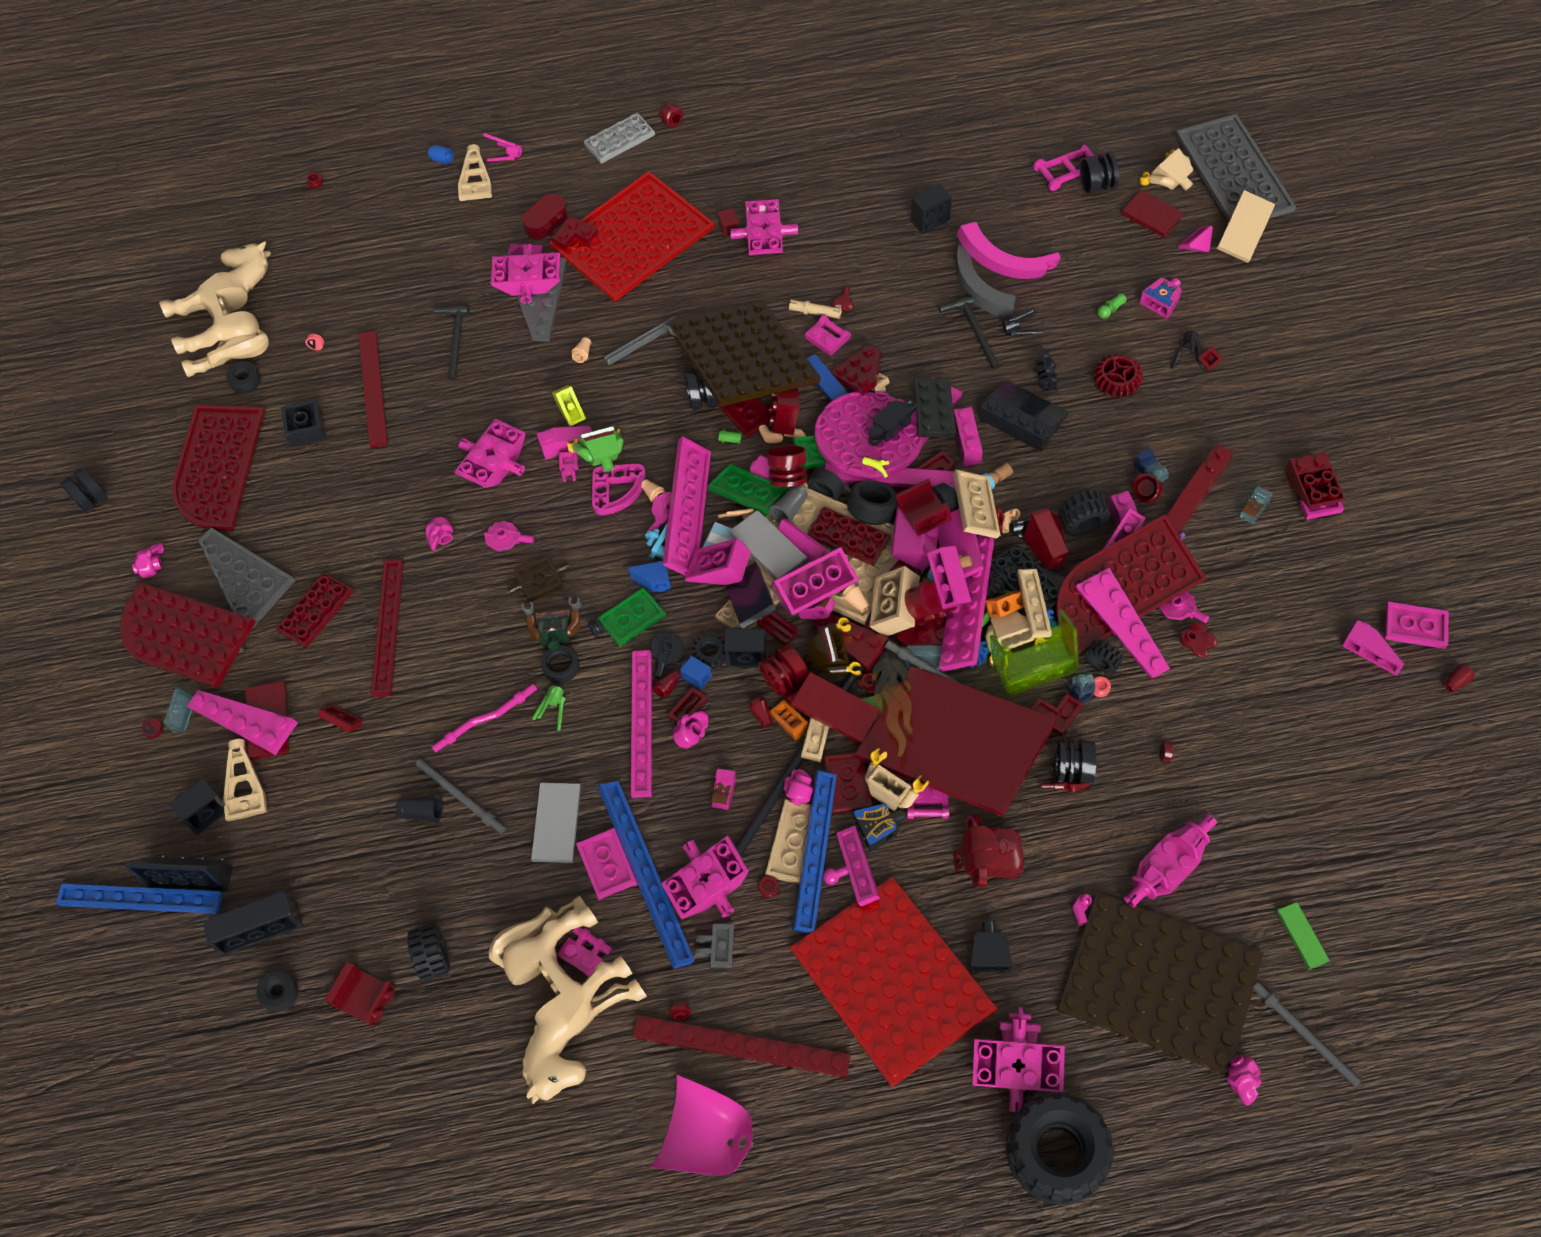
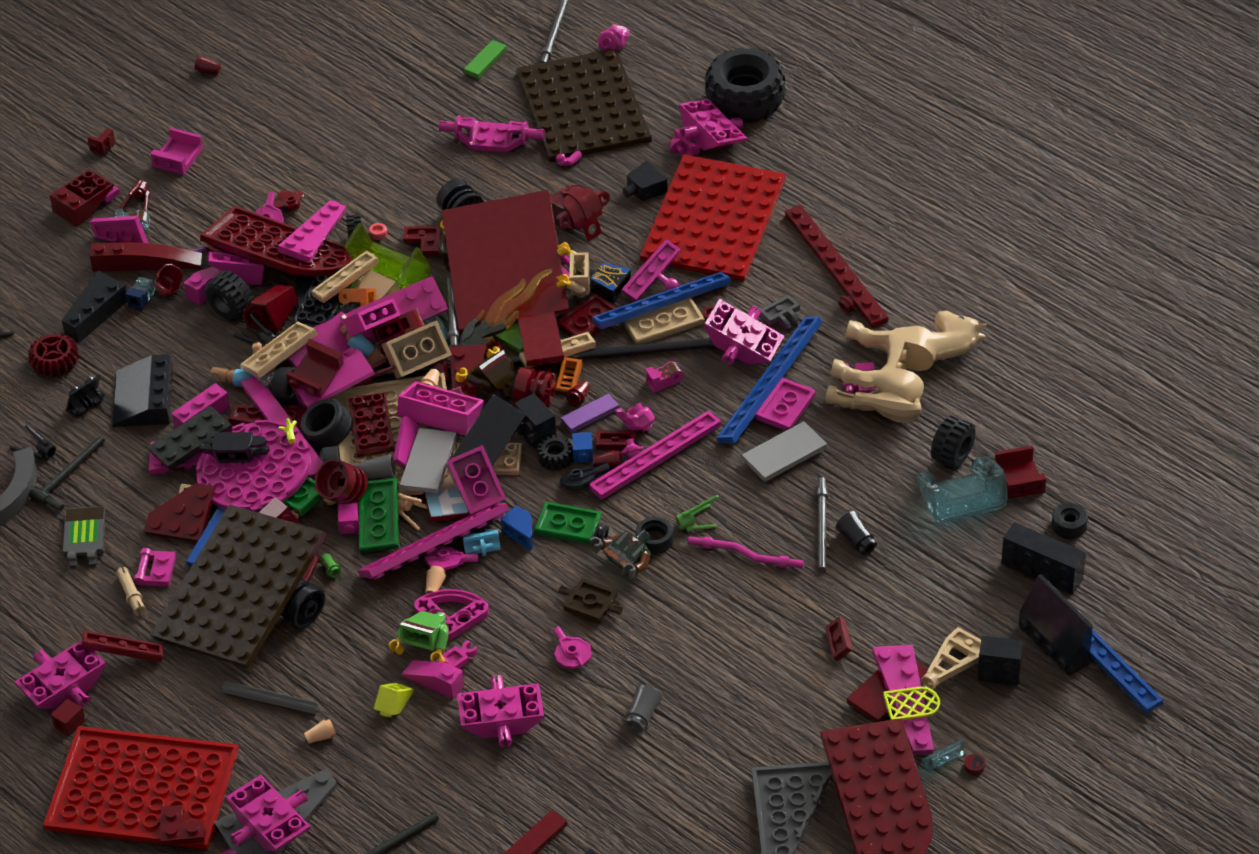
camera: 130 degrees left, 15 degrees down
(246, 698) = (917, 702): none -> neon yellow window
(314, 610) = (763, 737): dark red tile -> none
(385, 926) = (965, 495): none -> clear light blue windscreen
(387, 628) = (729, 675): dark red tile -> none
(411, 548) = (642, 707): none -> dark grey plant
(438, 532) = (613, 694): dark pink head -> none
(661, 706) = (631, 449): none -> dark pink plant
(700, 1132) = (920, 250): dark pink piece -> none
(733, 708) = (589, 413): none -> medium lavender tile
(758, 272) = (122, 646): none -> dark red tile
(798, 787) = (622, 332): dark pink head -> none
(843, 301) = (104, 578): dark red rock -> none
(899, 310) = (84, 534): none -> tile
(1082, 687) = (392, 231): clear light blue leg -> none
(1157, 426) = (94, 306): none -> black wedge
(1166, 751) = (404, 172): dark red tile -> none
(1242, 486) = (119, 229): none -> dark pink wing
(1296, 532) = (138, 191): none -> dark red plant
(1332, 588) = (178, 152): none -> dark pink panel
(1370, 645) = (215, 114): dark pink slope -> none
(1387, 537) = (103, 143): none -> dark red bracket
(1416, 625) = (176, 101): dark pink plate -> none

